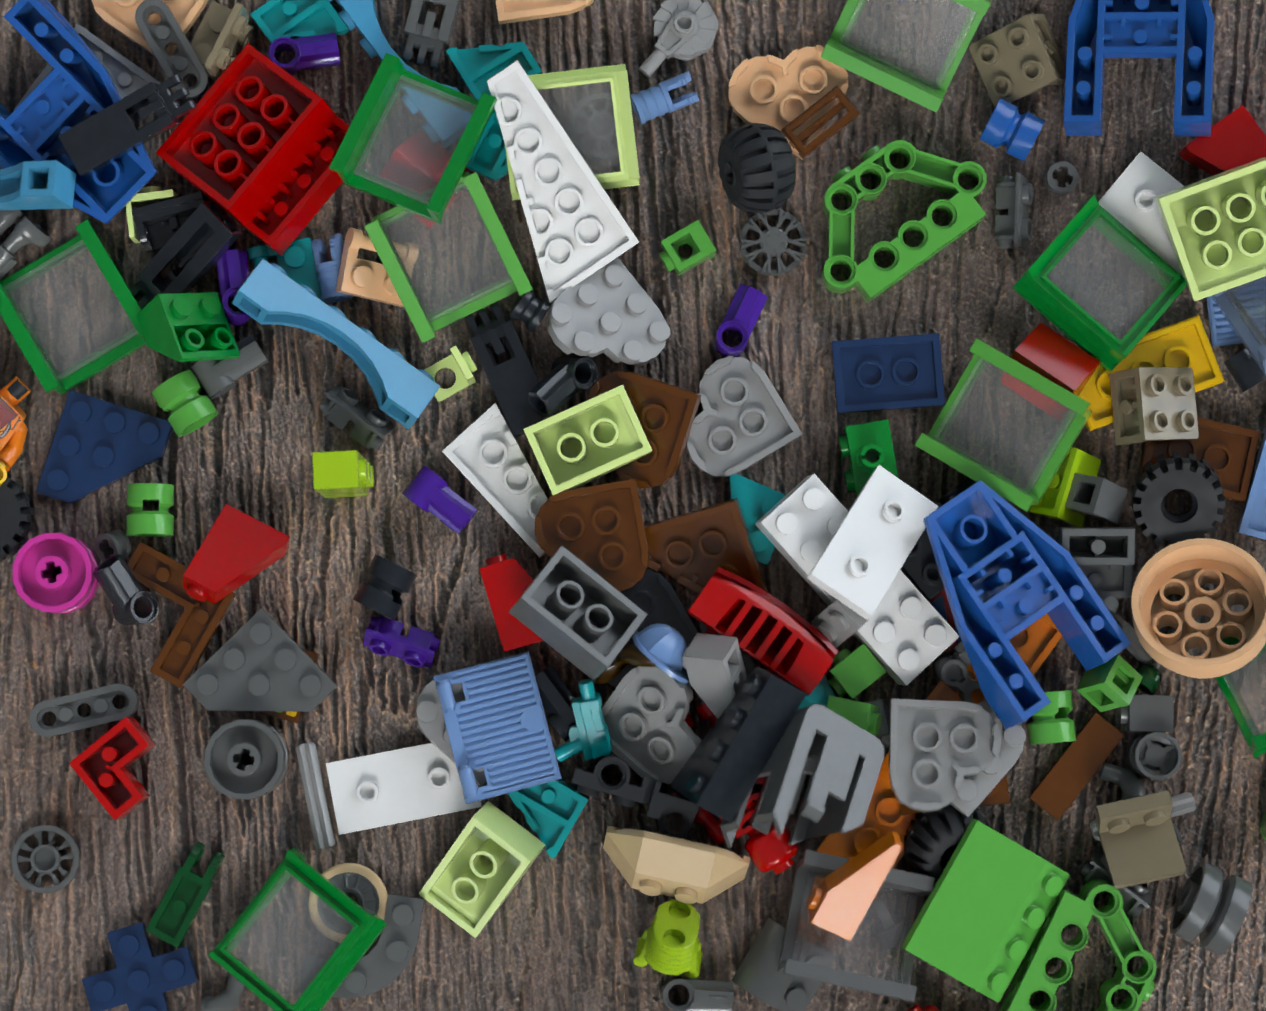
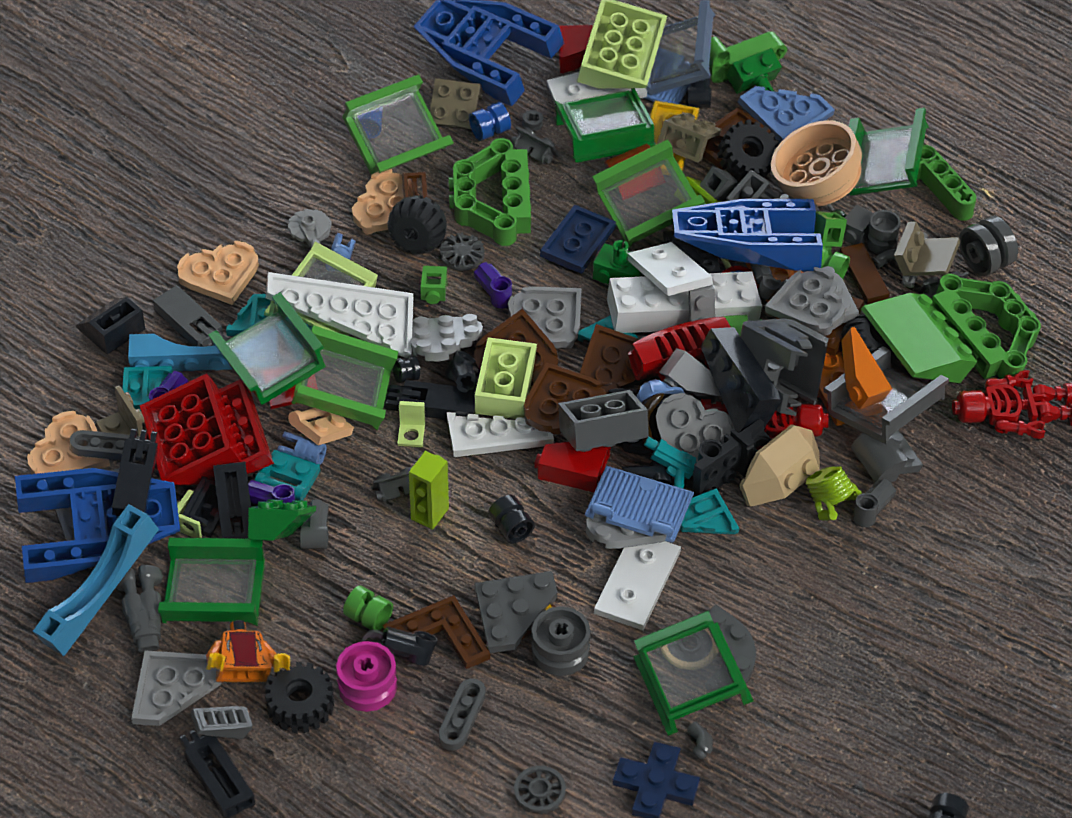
camera: 55 degrees left, 35 degrees down
(99, 446) = (305, 620): dark blue plate -> none
(106, 768) = (513, 715): red brick -> none
(184, 898) = (622, 726): dark green hinge -> none
(187, 407) = (318, 556): bright green wheel -> none
(232, 555) = (428, 579): red slope -> none
(278, 300) = (303, 467): dark azure arch -> none
(315, 795) = (613, 626): light grey axle -> none
(385, 639) = (552, 534): dark purple hinge -> none
(434, 496) = (474, 471): dark purple piece -> none
(481, 868) = (719, 564): yellowish green slope -> none

